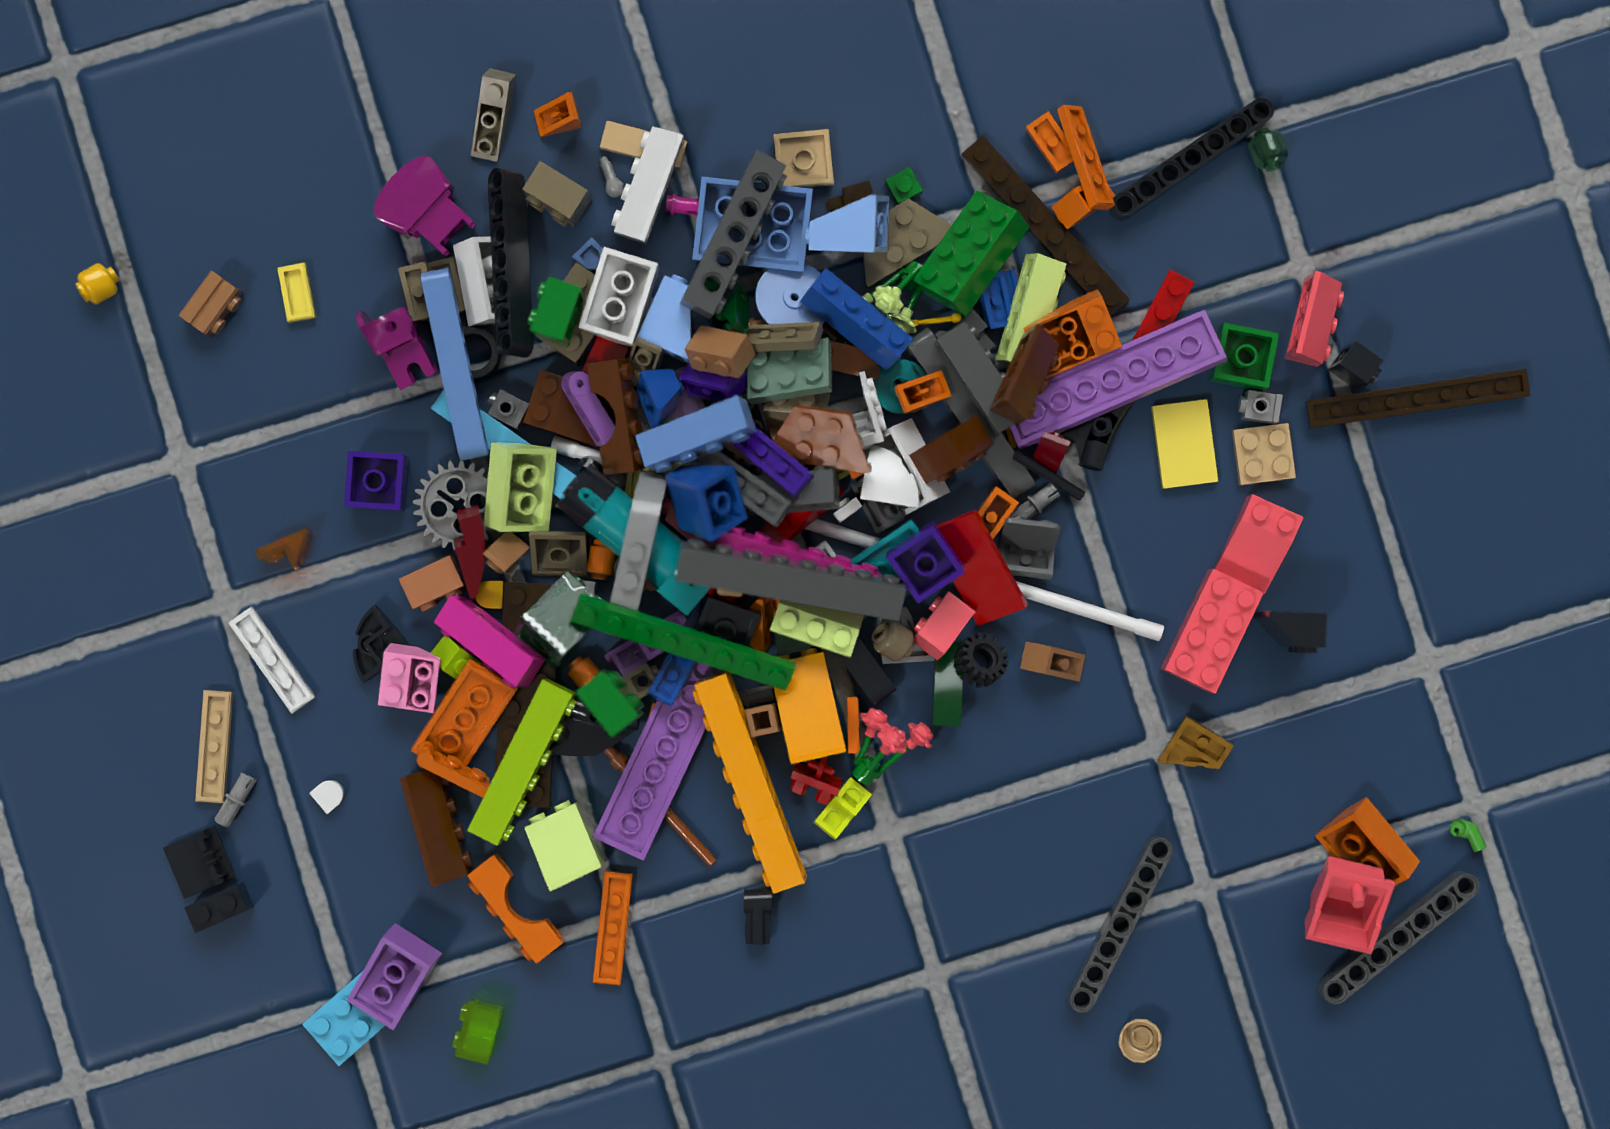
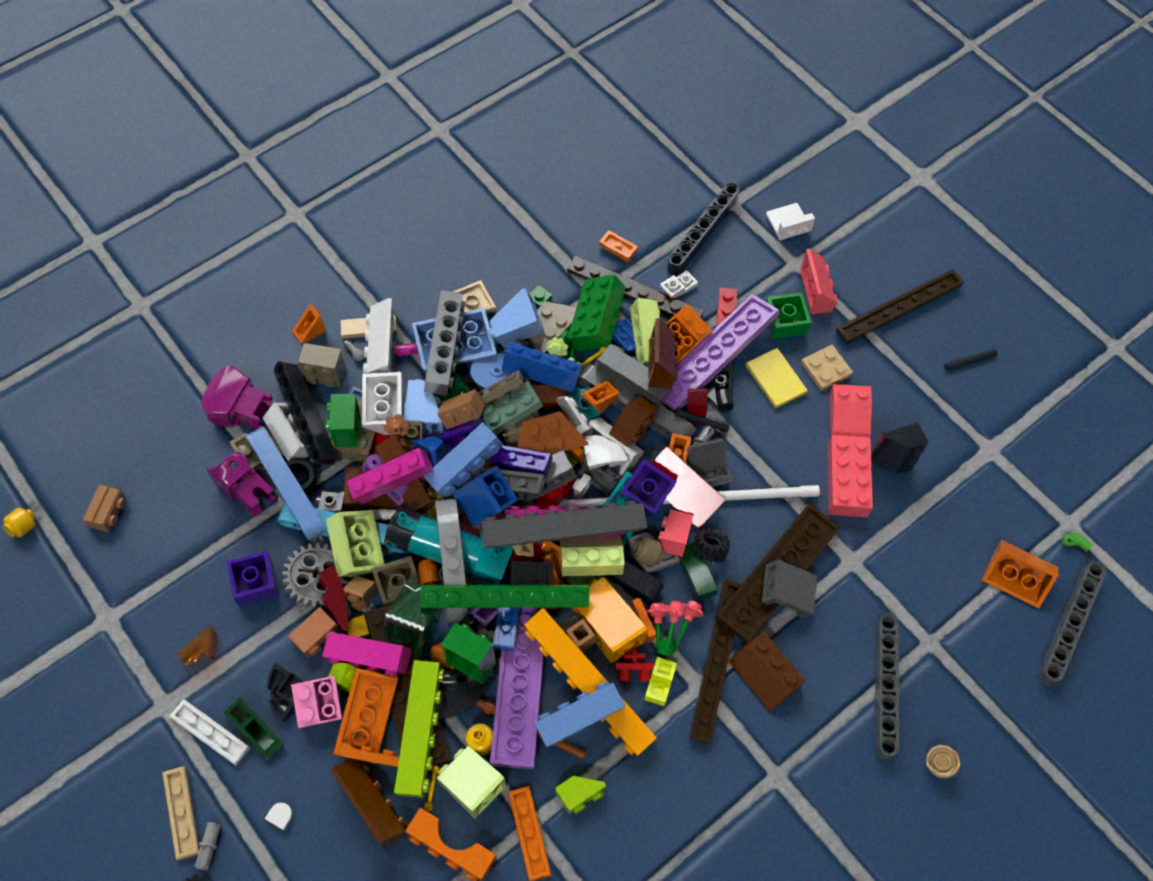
camera: 20 degrees left, 25 degrees down
(296, 292) = (163, 484): light yellow tile -> none
(325, 676) = (253, 728): none -> dark green slope
(492, 113) = (265, 338): dark tan slope -> none
(505, 850) = (428, 805): none -> yellow hinge
(591, 420) = (390, 475): none -> dark pink brick
(595, 789) = (480, 738): none -> yellow head
(623, 346) = (396, 425): none -> nougat plant
(627, 652) = (470, 621): none -> black bush
(686, 905) = (578, 791): none -> lime slope
(720, 823) = (580, 714): none -> medium blue brick
(757, 910) = (630, 774): black piece -> none
(923, 810) = (713, 673): none -> dark brown plate
(978, 849) = (767, 671): none -> reddish brown slope
(1052, 661) = (757, 530): medium nougat slope -> none
(1052, 728) = (798, 547): none -> dark brown plate
(1054, 759) = (789, 587): none -> dark grey panel
(1073, 207) = (650, 269): orange slope -> none
(1085, 157) = (642, 244): orange tile -> none
(1112, 243) = (679, 285): none -> white slope
(1195, 746) = (876, 550): pearl gold wing -> none
(1268, 149) = (745, 209): clear green head -> none
(1272, 408) = (811, 341): light grey brick -> none
(1326, 192) = (790, 221): none -> white bracket
(1348, 905) = (1031, 607): coral piece -> none
(1356, 365) = (856, 296): black brick -> none
(1475, 519) = (971, 359): none -> black bar

